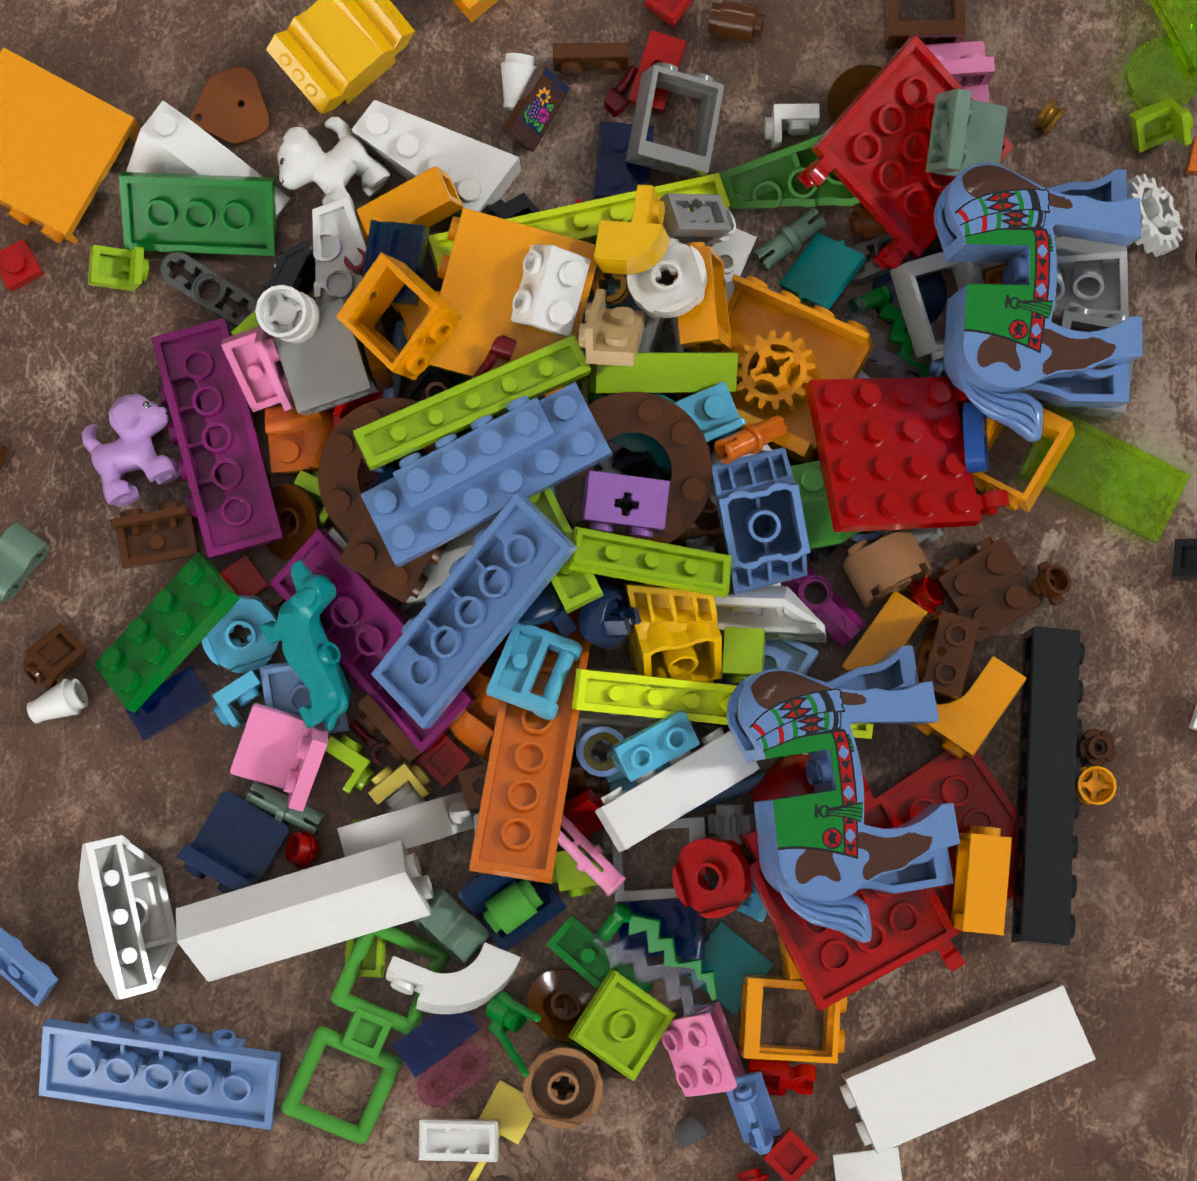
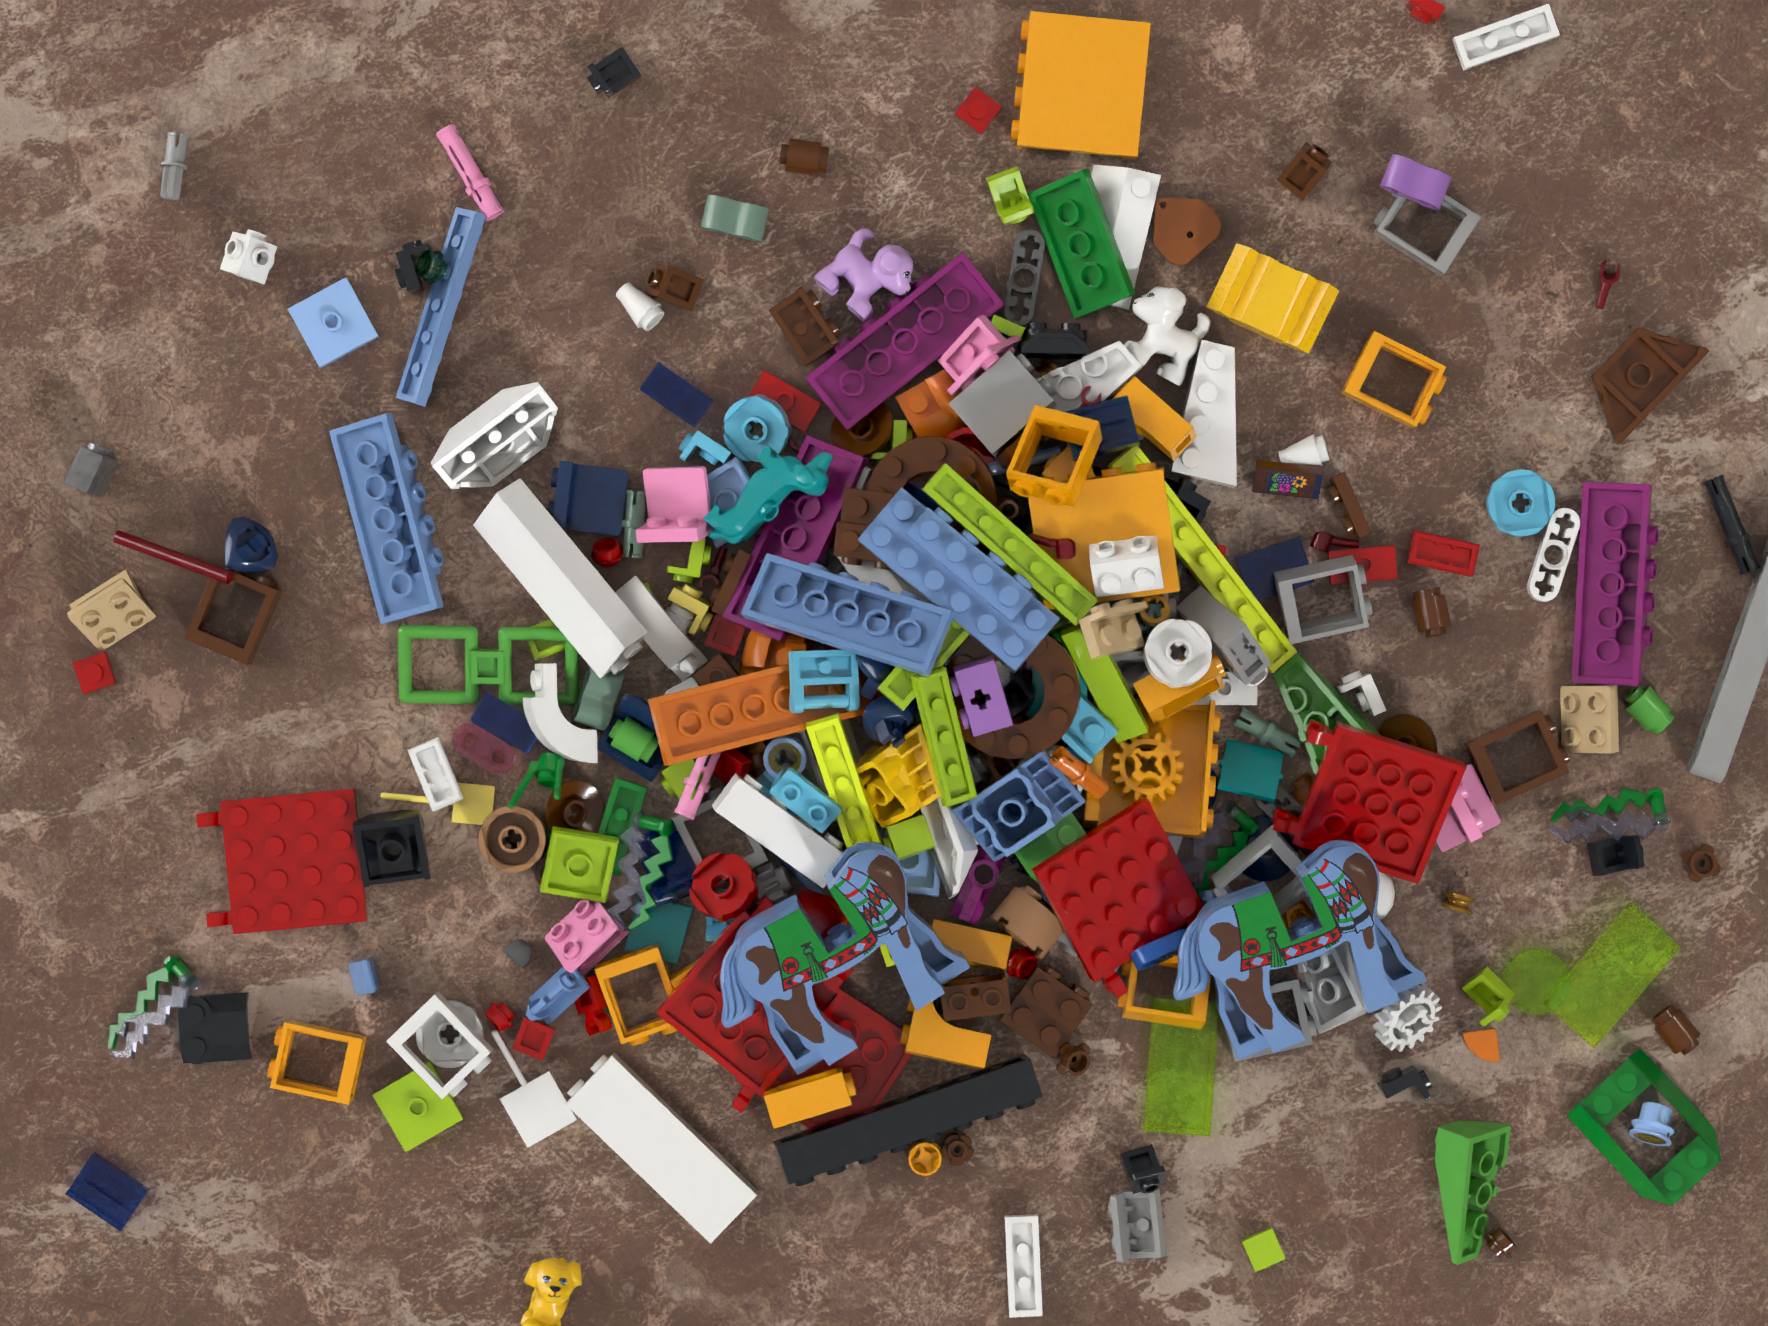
camera: 65 degrees right, 5 degrees up
(166, 632) = (732, 370): green plate -> none
(288, 314) = (1020, 366): white wheel -> none
(636, 244) = (1191, 619): yellow brick -> none
(964, 133) = (1402, 842): sand green bracket -> none

